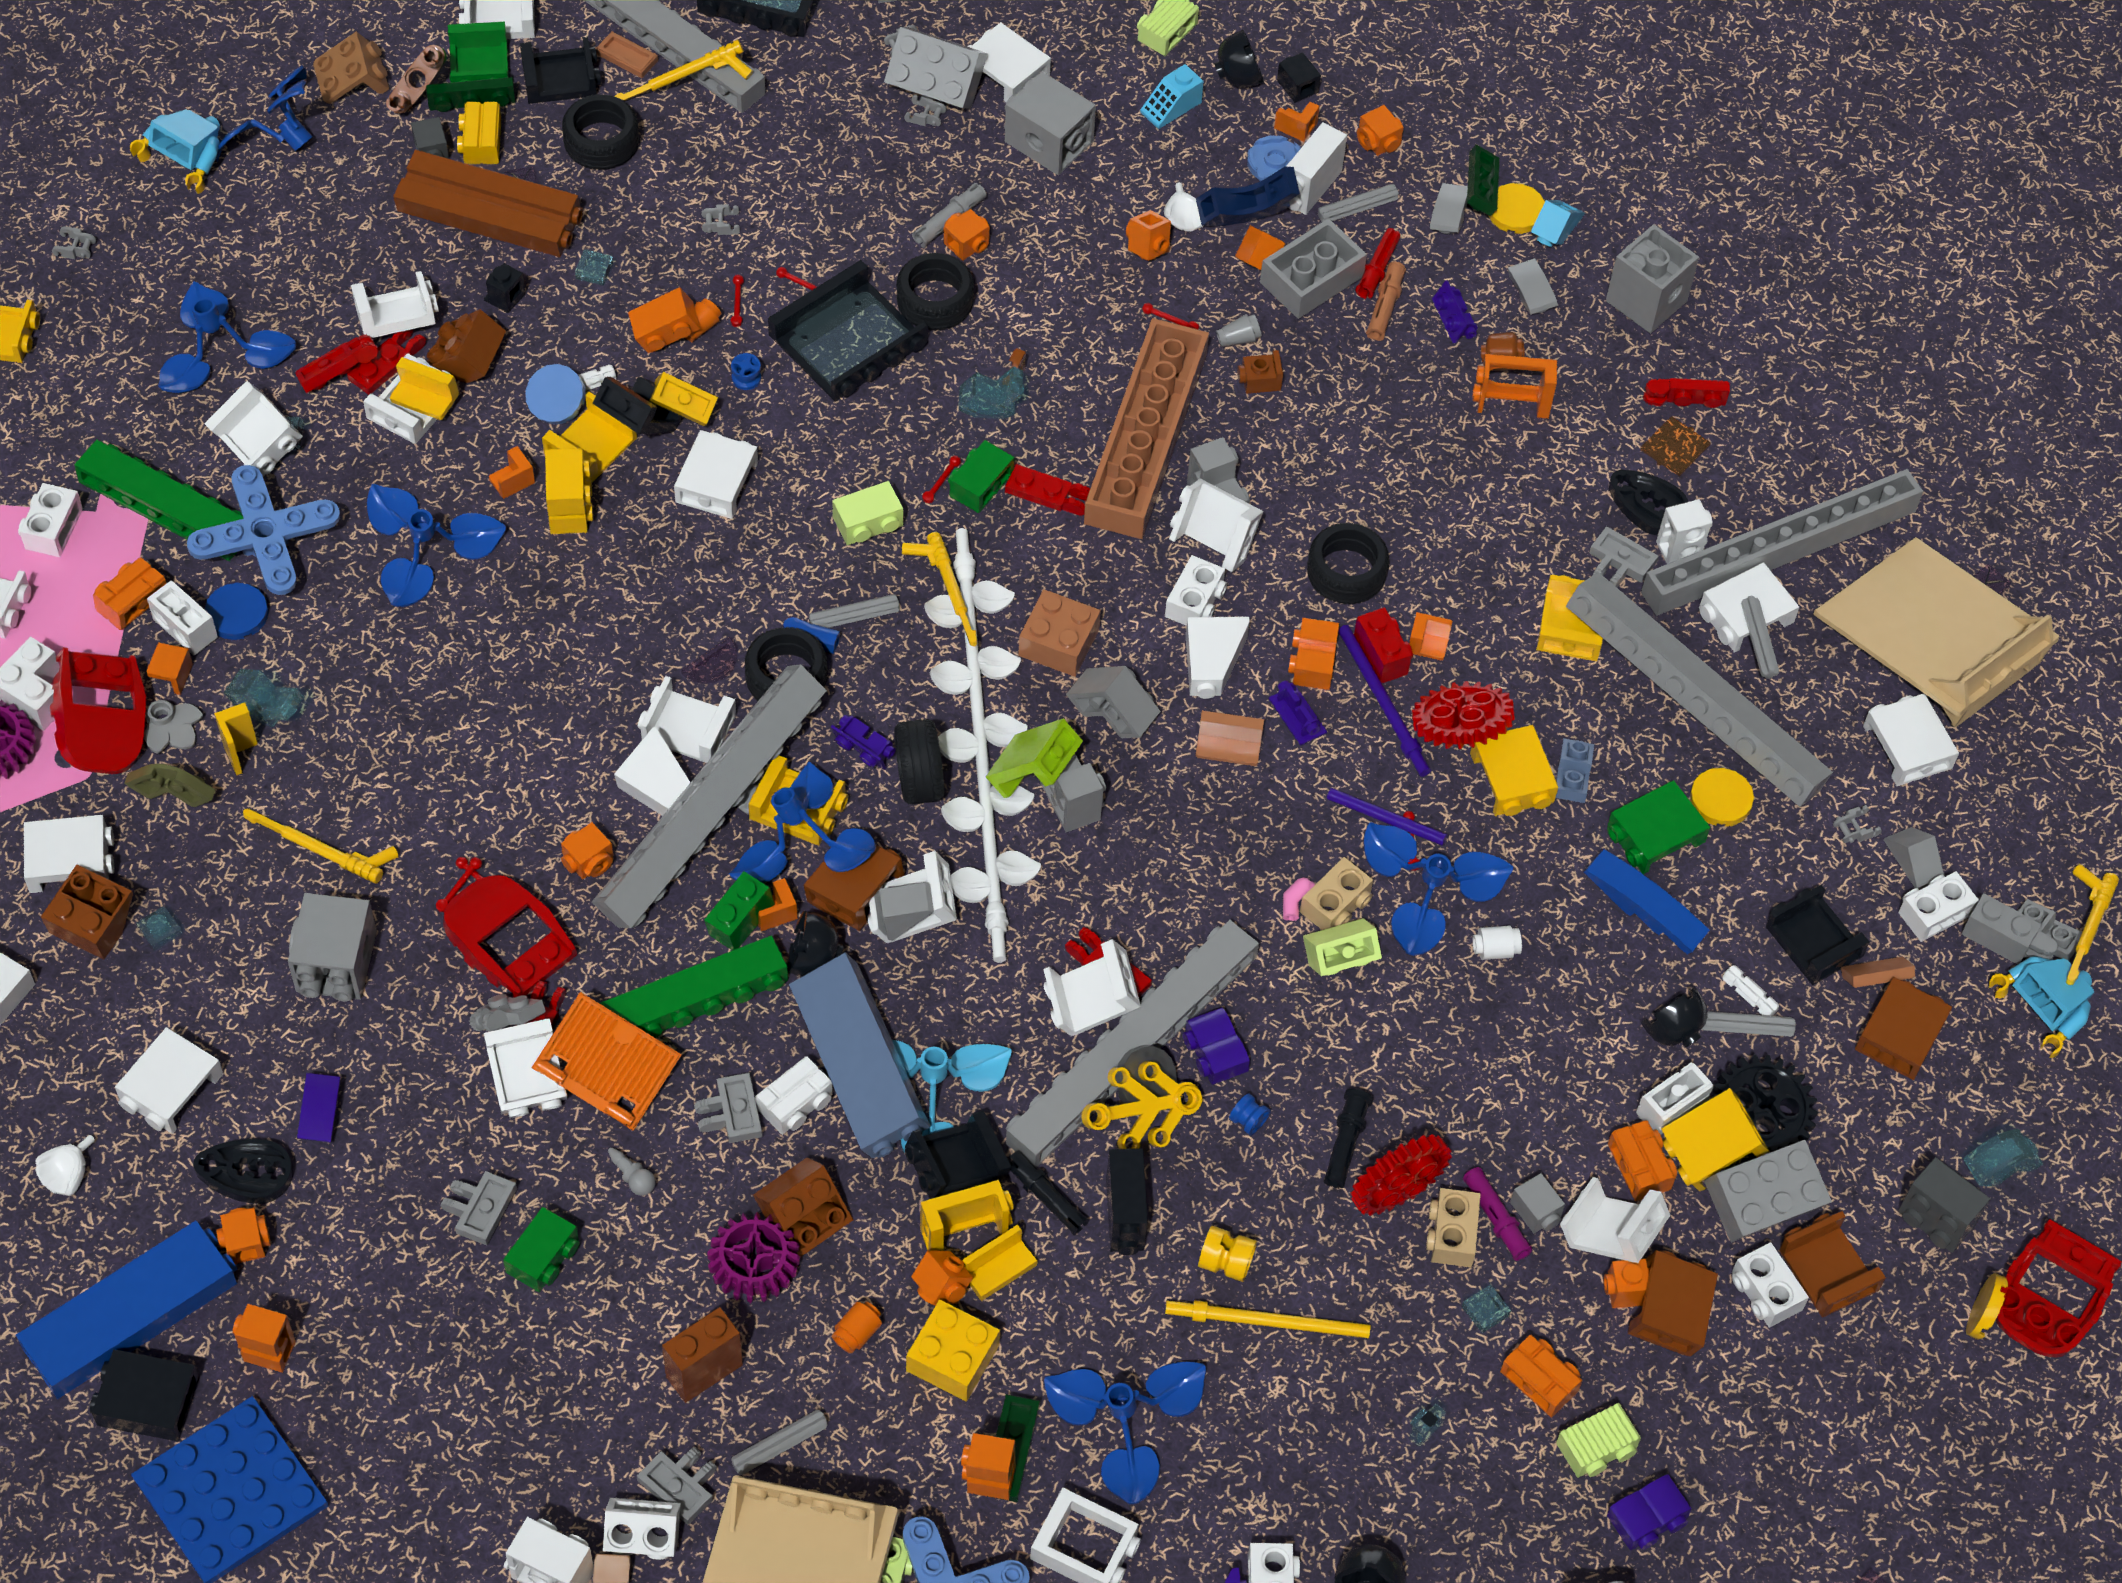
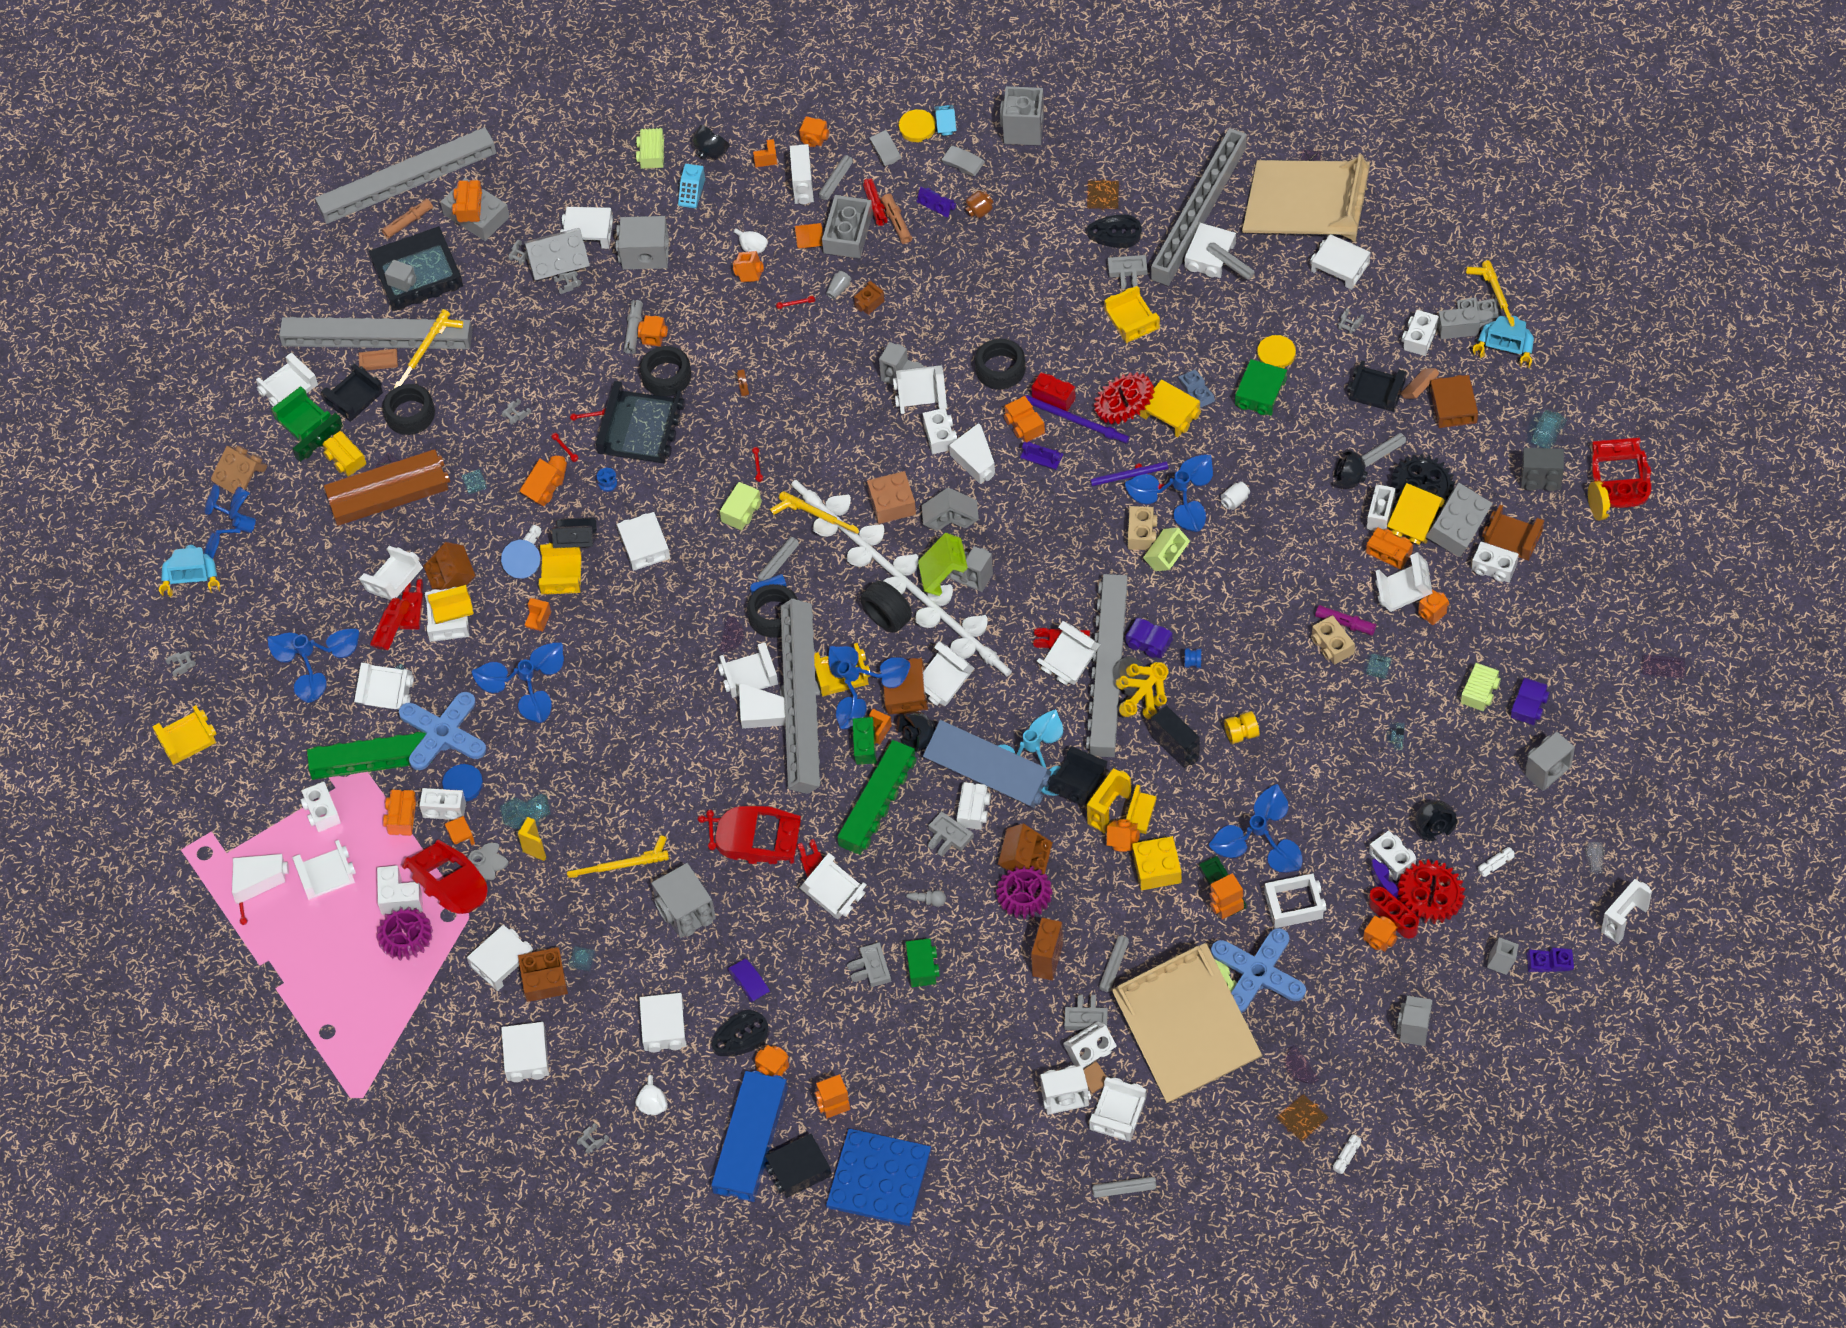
camera: 30 degrees left, 0 degrees up
(162, 778) = (520, 883): olive plate -> none
(405, 92) = (282, 462): dark orange connector -> none
(429, 137) = (320, 475): dark grey brick -> none
(500, 283) = (439, 524): black brick -> none
(505, 1011) = (799, 868): light grey hinge -> none
(568, 490) = (579, 601): yellow piece -> none
(587, 852) = (761, 768): orange brick -> none
(607, 1060) = (869, 854): orange window -> none
(683, 398) = (592, 514): yellow panel -> none
(852, 735) = (852, 620): dark purple hinge -> none
(857, 1326) = (1102, 886): orange brick -> none
(905, 907) = (946, 679): light grey slope -> none
(981, 476) = (778, 448): green brick -> none
(991, 398) = (746, 405): clear light blue brick -> none
(1037, 1183) = (1133, 763): black pin -> none
(1047, 490) = (817, 432): red hinge -> none
(1146, 429) = (840, 365): nougat brick -> none
(1201, 1311) = (1252, 762): yellow bar -> none
(1229, 738) = (1020, 490): nougat panel -> none
(1249, 202) = (784, 213): dark blue arch -> none
(1262, 163) = (772, 183): medium blue tile -> none
(1292, 897) = (1119, 543): bright pink arm -> none
(1298, 77) = (745, 131): black brick -> none
(1350, 1125) = (1243, 629): black pin -> none
(1401, 1174) = (1292, 631): red gear -> none
(1430, 636) = (1070, 371): orange panel -> none
(1483, 180) = (890, 122): dark green plate -> none
(1538, 1204) = (1361, 602): light grey brick -> none
(1541, 394) = (1018, 212): orange panel -> none
(1542, 1375) = (1430, 676): orange brick -> none
(1646, 899) = (1284, 425): blue slope -> none
(1675, 1304) = (1463, 600): dark orange panel -> none
(1683, 530) = (1149, 234): white brick -> none
(1687, 392) = (1086, 162): red hinge -> none
(1699, 689) = (1223, 306): light grey brick -> none
(1750, 991) = (1369, 434): white axle -> none
(1916, 855) = (1390, 315): light grey slope -> none

